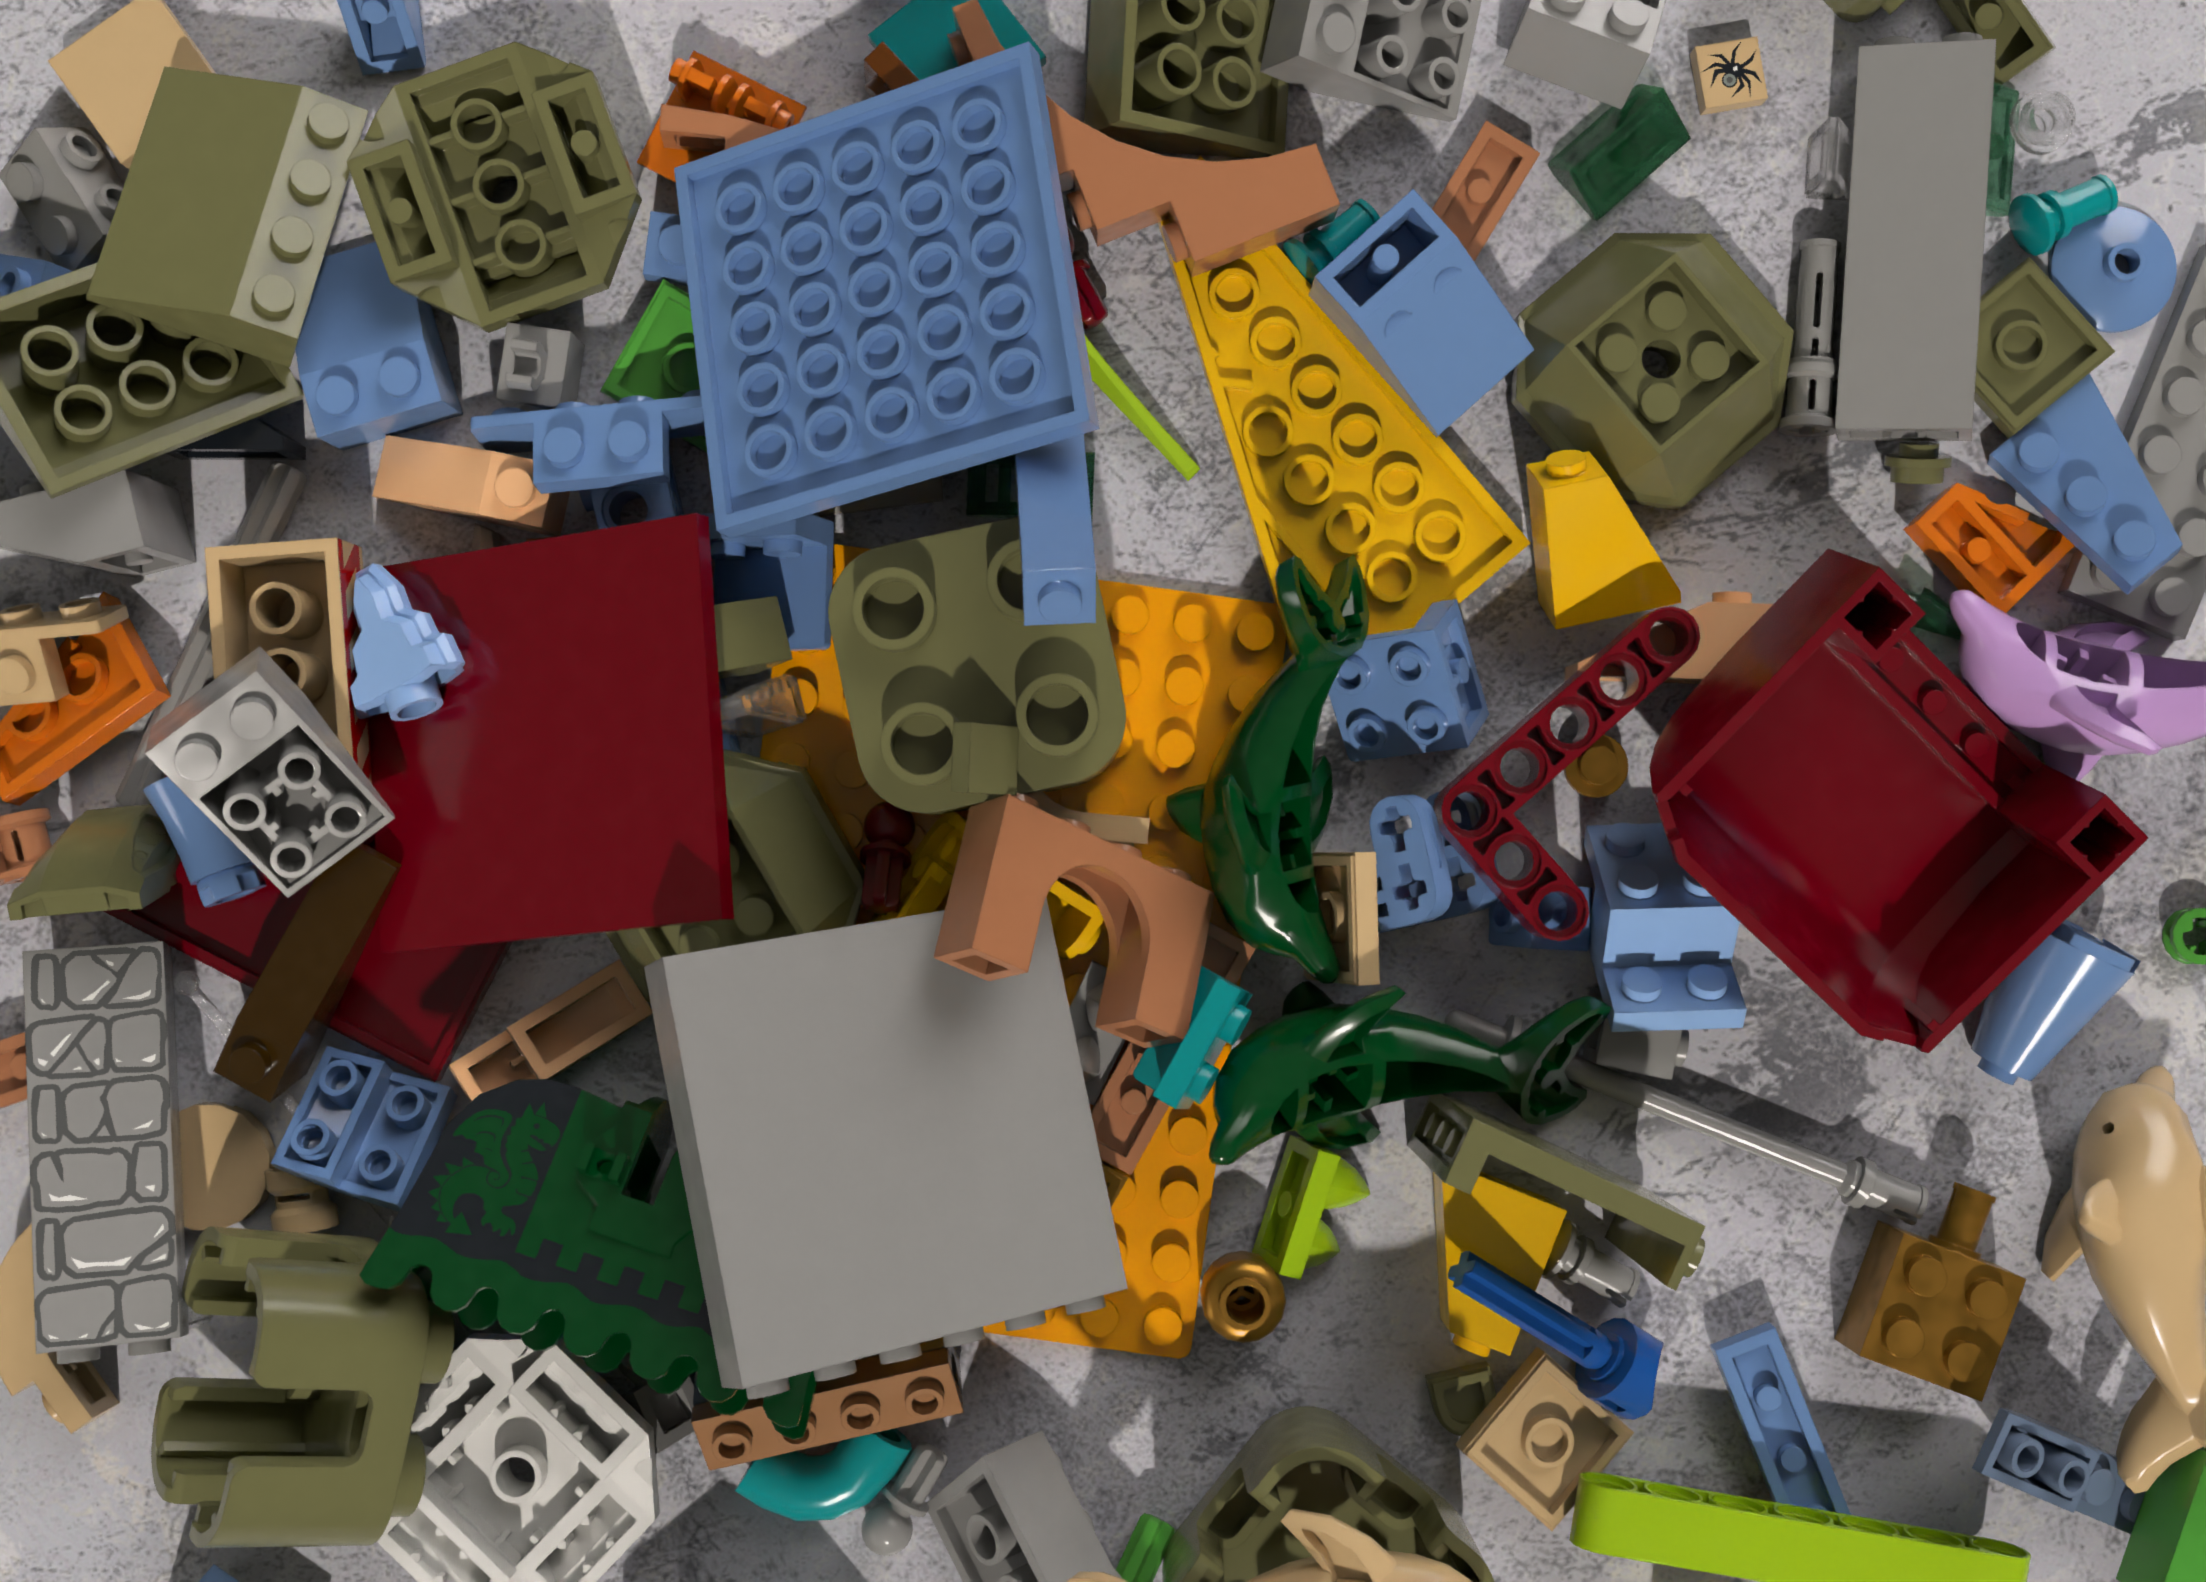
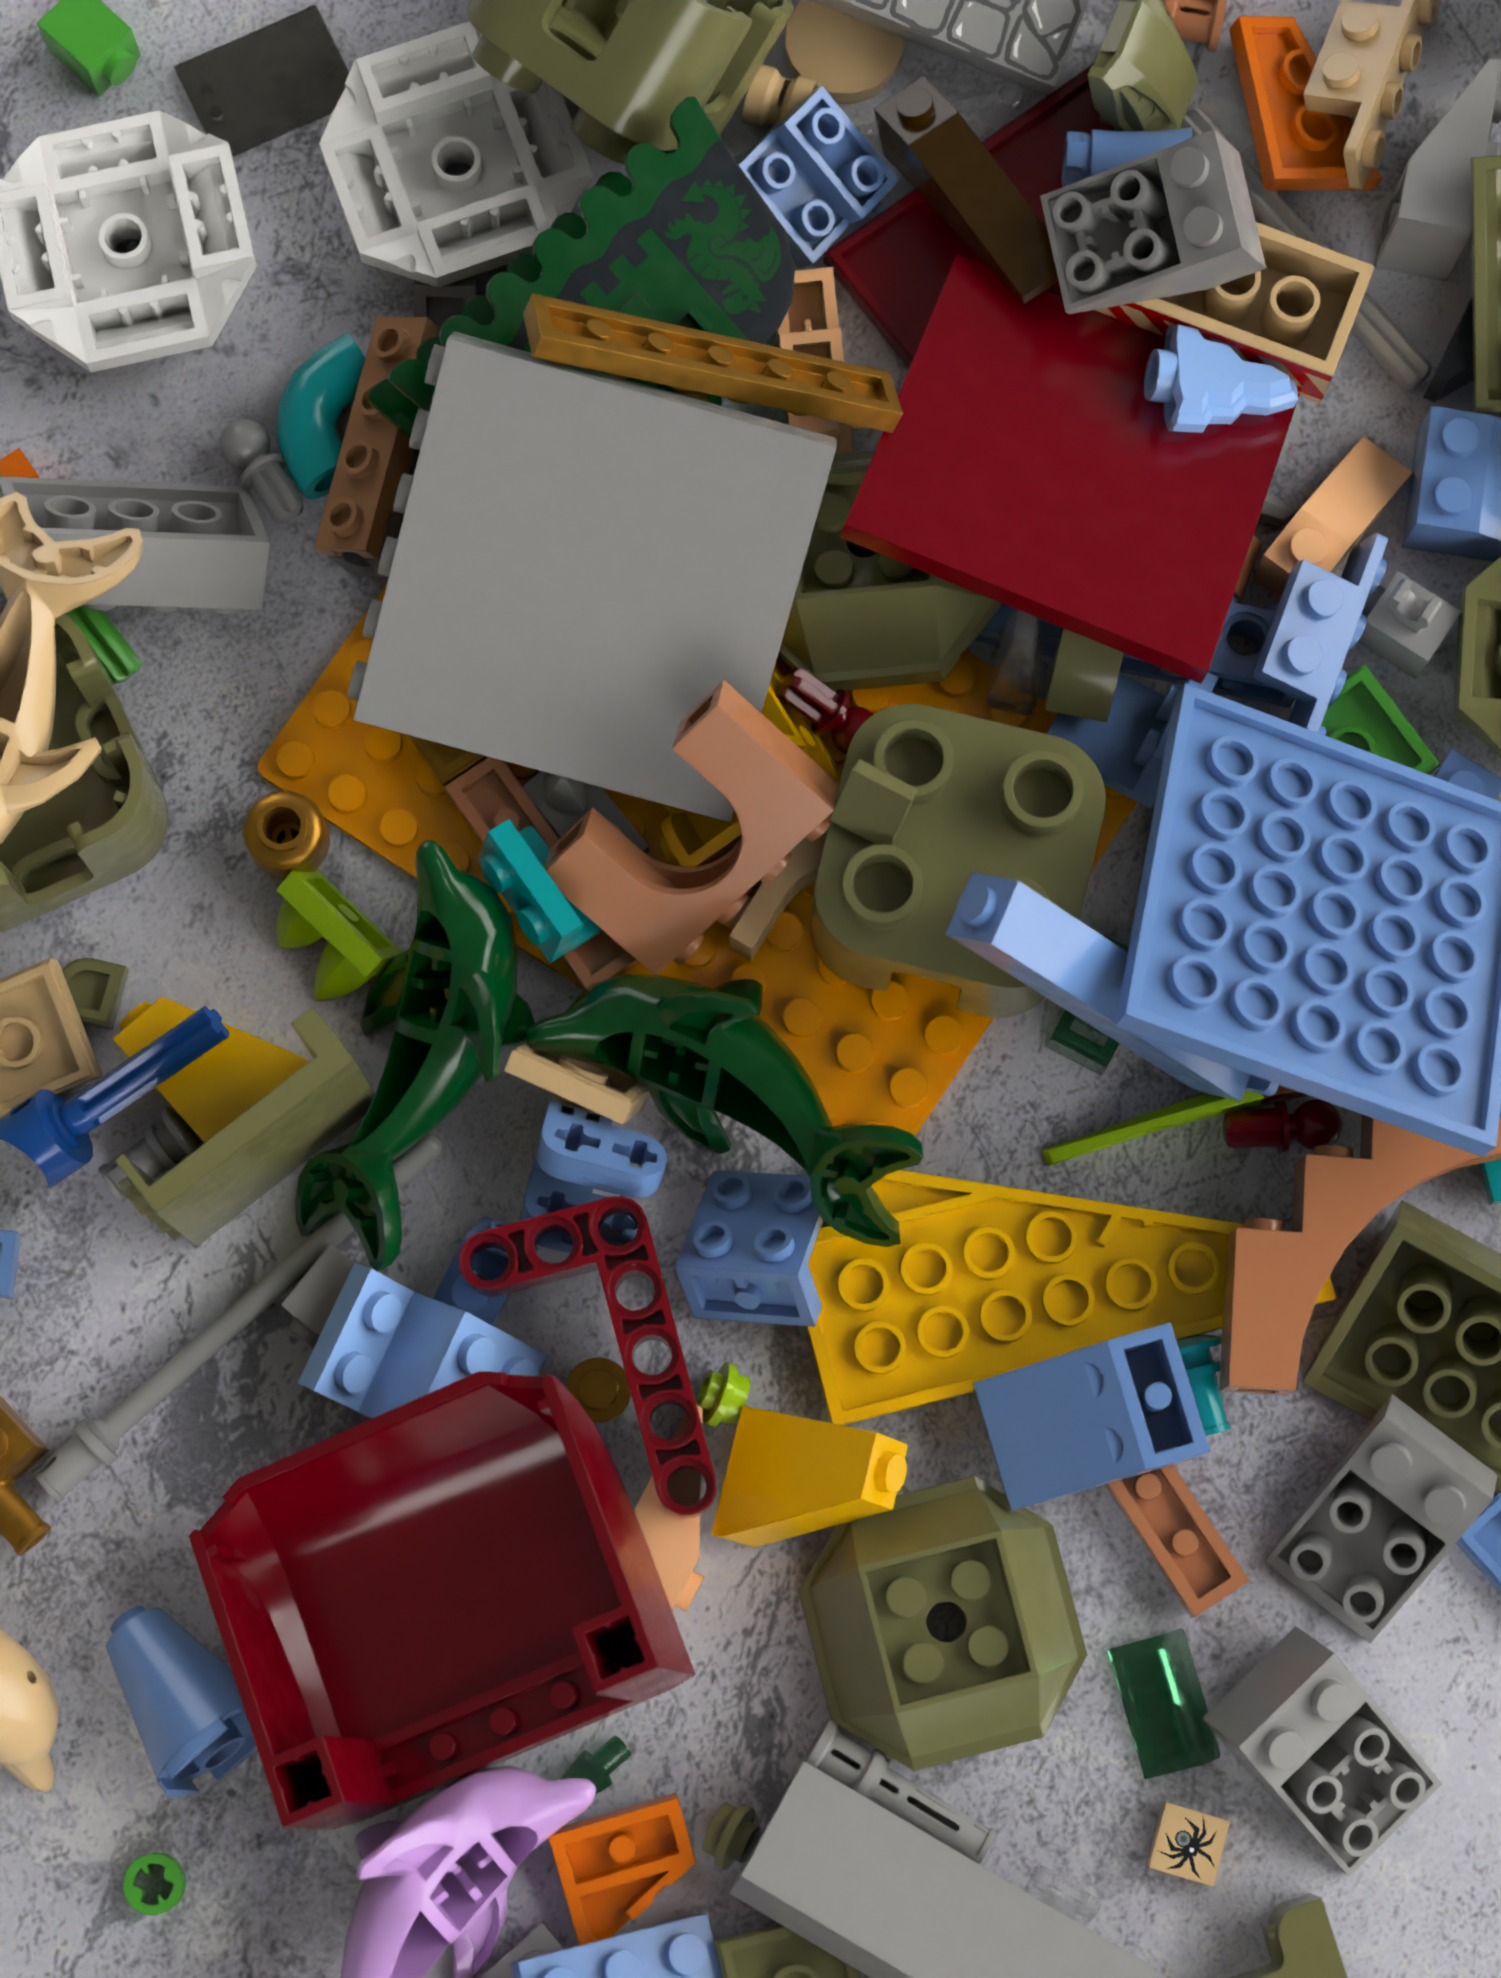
camera: 115 degrees right, 10 degrees down
(629, 1126) = (710, 363): none -> pearl gold plate
(1549, 653) = (723, 1395): none -> lime plate

